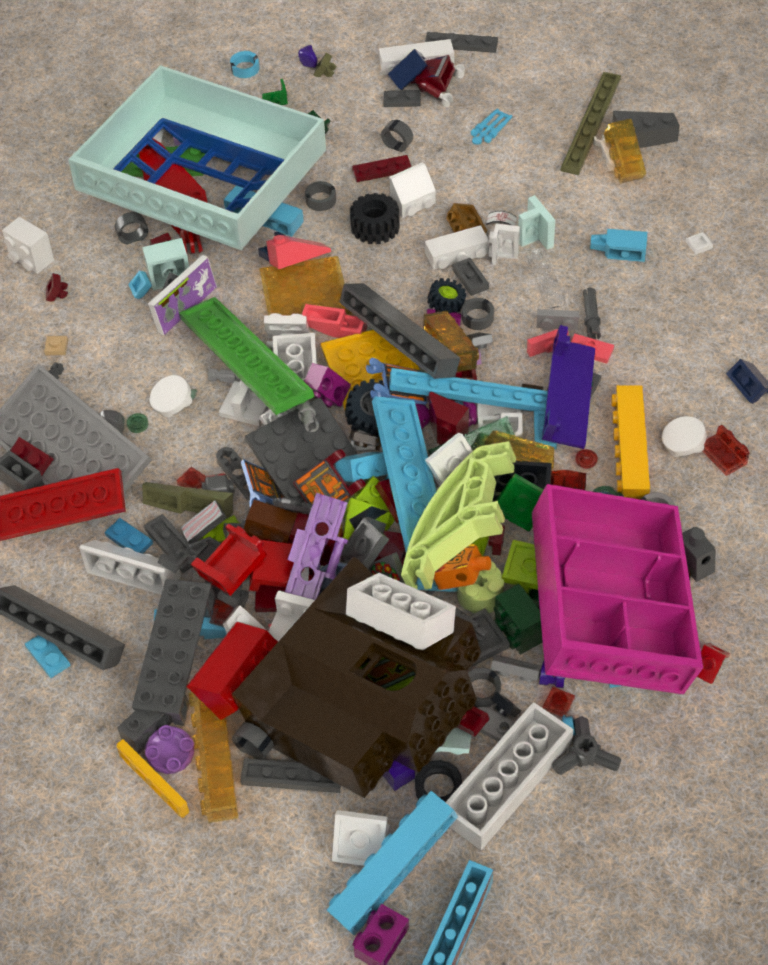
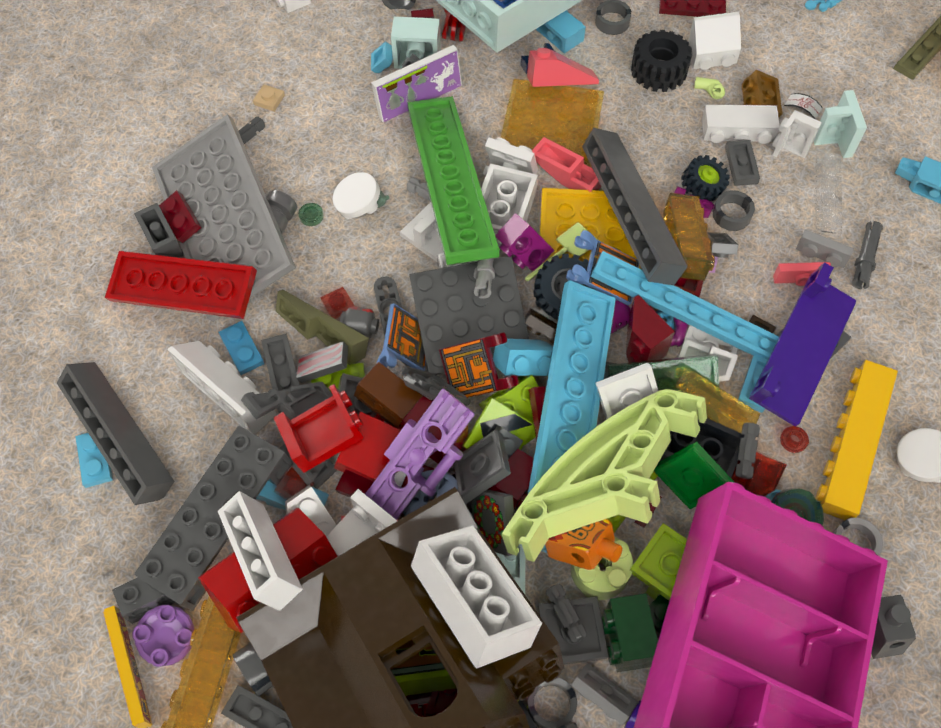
camera: 20 degrees right, 10 degrees up
(55, 288) = (296, 34): dark red tile -> none
(228, 644) = (259, 551): none -> white brick
(358, 374) = (567, 241): none -> yellowish green piece
(423, 226) = (712, 86): none -> yellowish green arm
(553, 468) = (747, 450): none -> dark grey axle
(602, 349) = (865, 303): coral plate -> none

